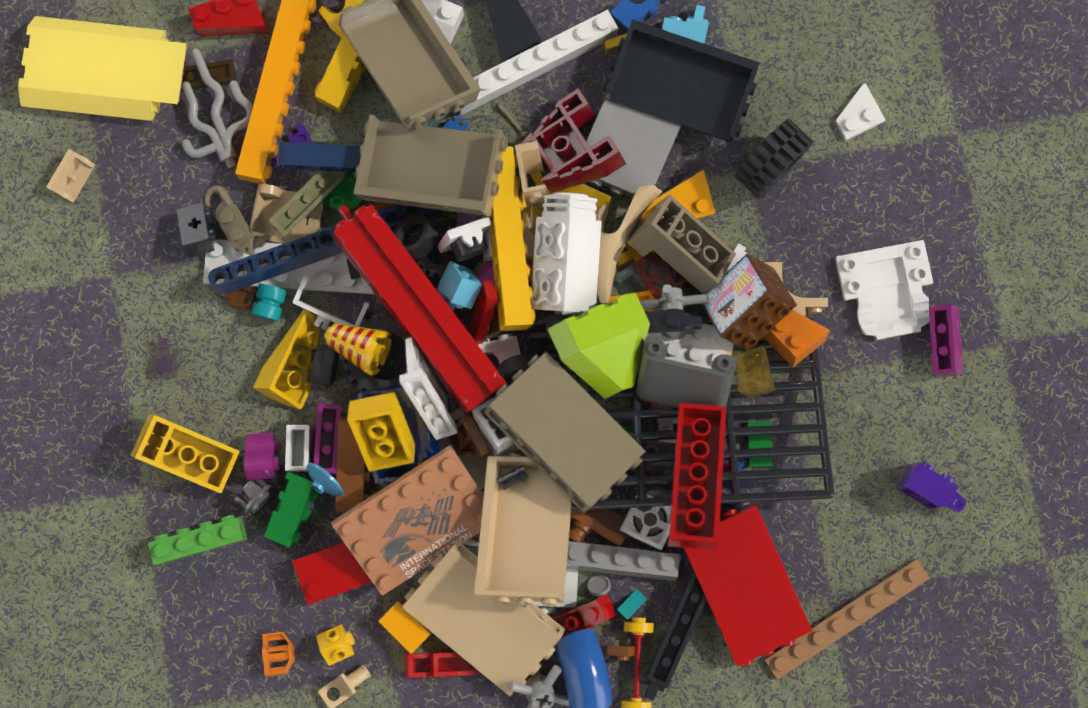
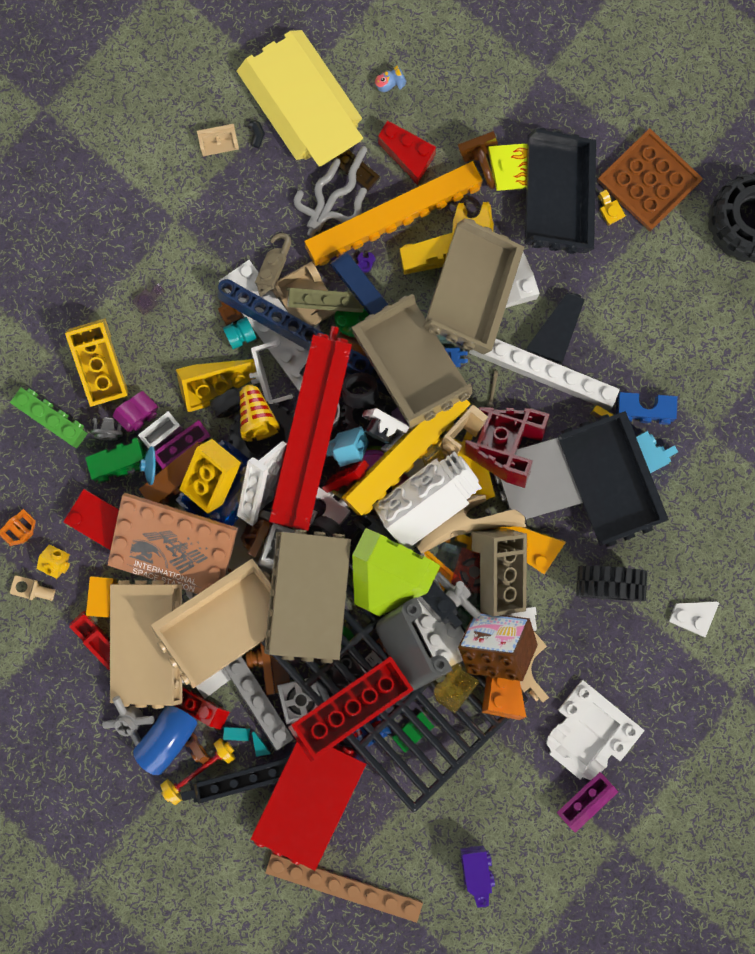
camera: 50 degrees right, 0 degrees up
(89, 132) = (256, 127): none -> black arm
(196, 229) = (248, 247): brick -> none
(515, 476) = (252, 587): black pin -> none
(599, 585) = (231, 702): light grey piece -> none
(660, 591) = (260, 747): none -> teal piece

